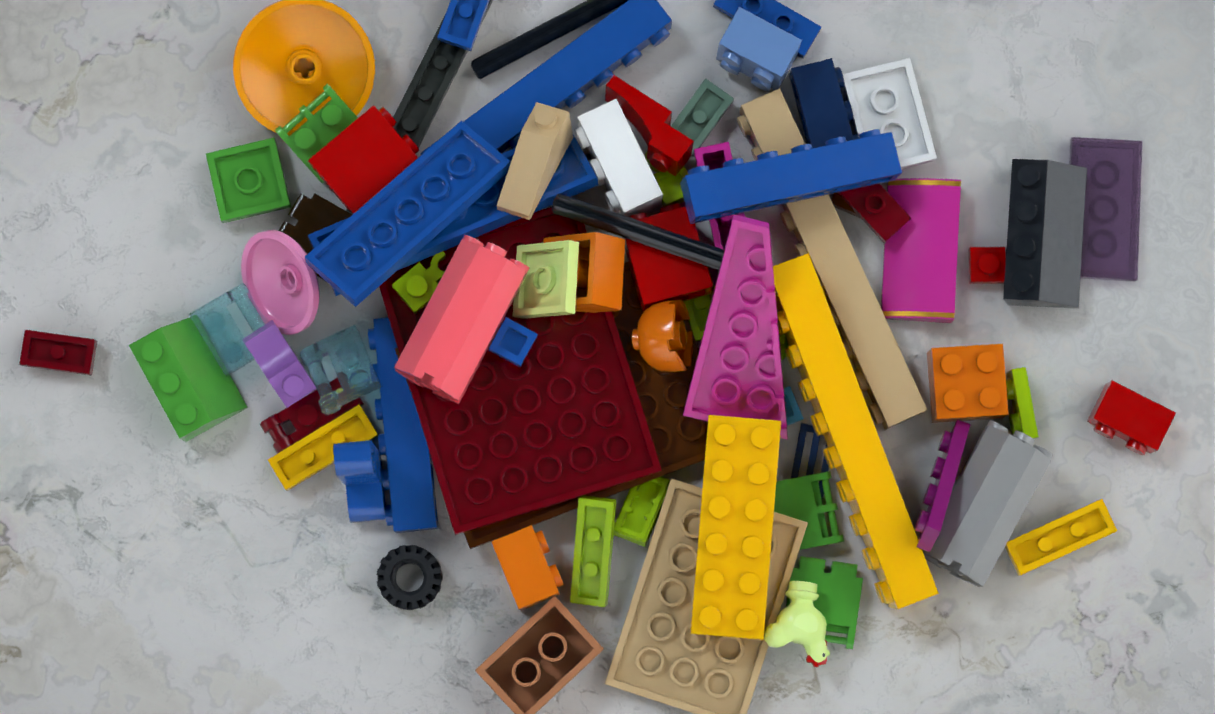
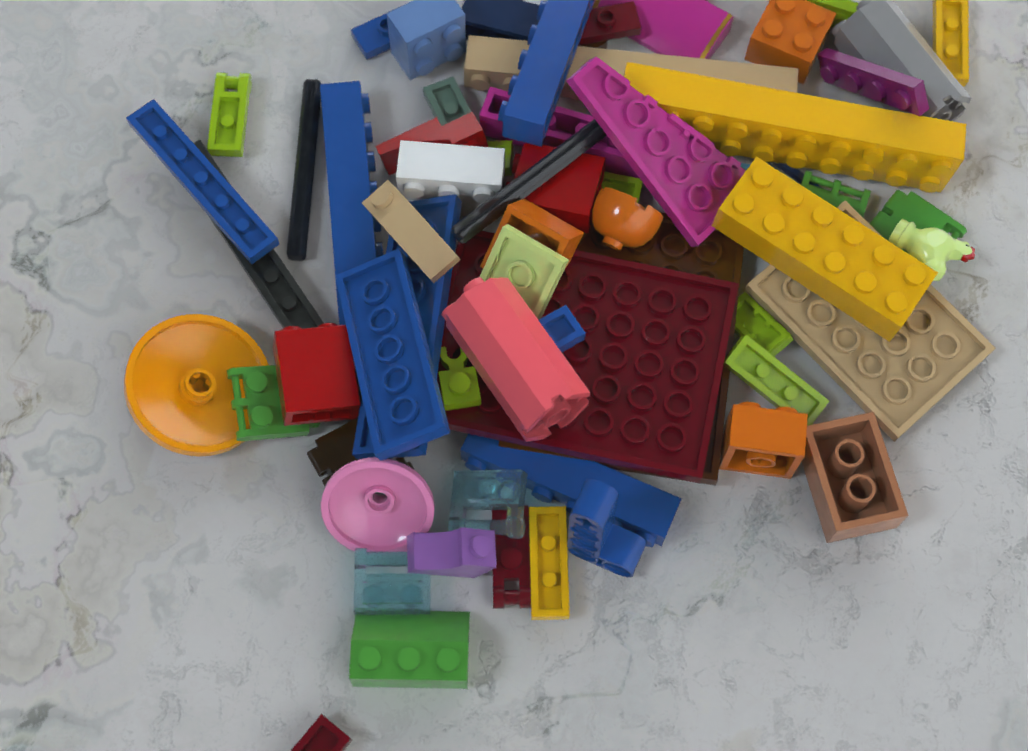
camera: 60 degrees left, 15 degrees down
(248, 180) = (264, 492): bright green plate -> none
(387, 577) = (727, 537): black tyre -> none

